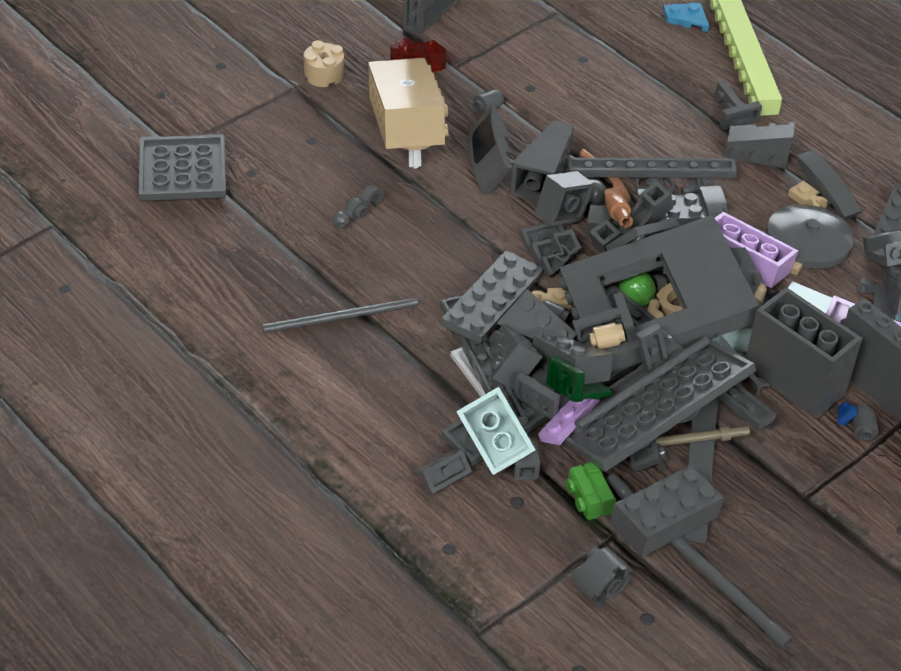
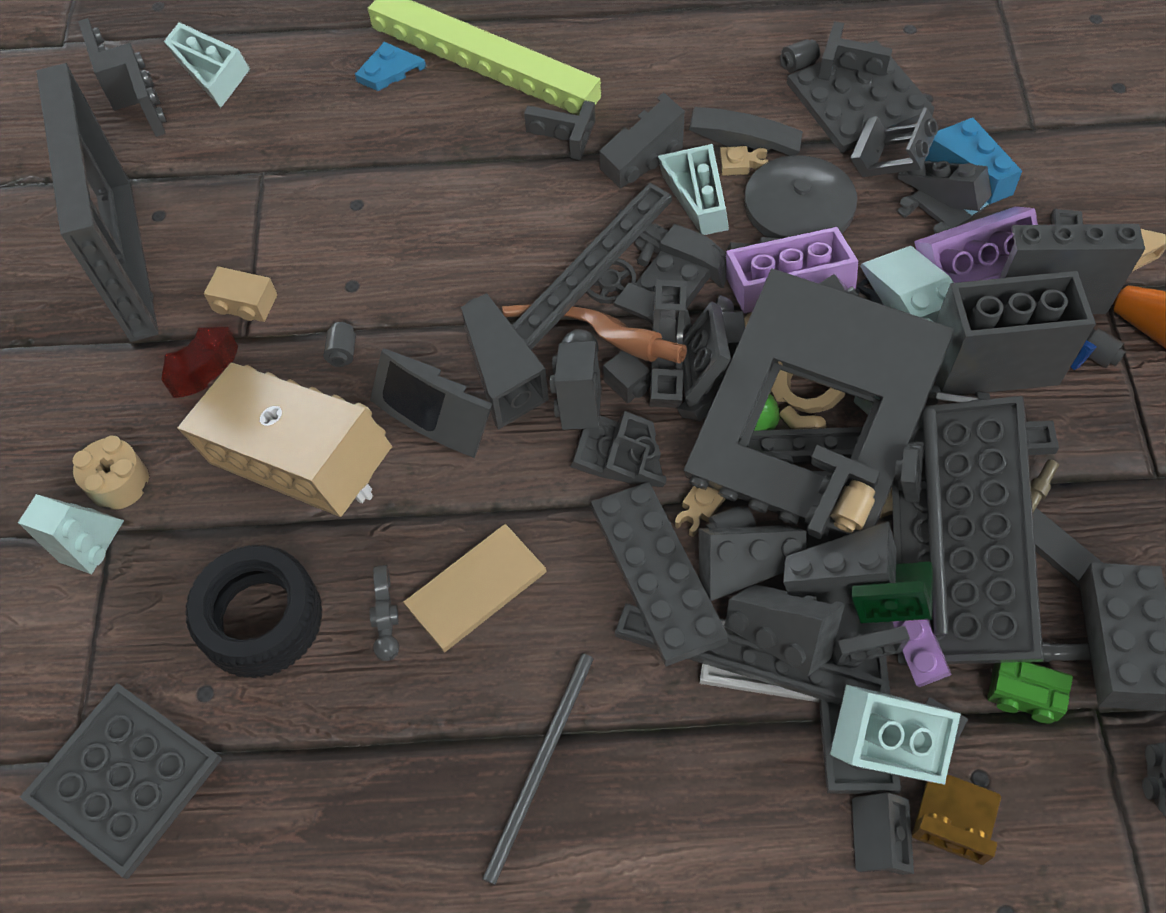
camera: 45 degrees left, 15 degrees up
(278, 66) = (70, 532): none -> light aqua wedge
(308, 176) = (231, 575): none -> black tyre
(409, 235) = (474, 587): none -> tan tile
(473, 47) = (240, 294): none -> tan brick
(480, 495) = (958, 819): none -> pearl gold bracket
(759, 183) = (697, 186): none -> light aqua wedge

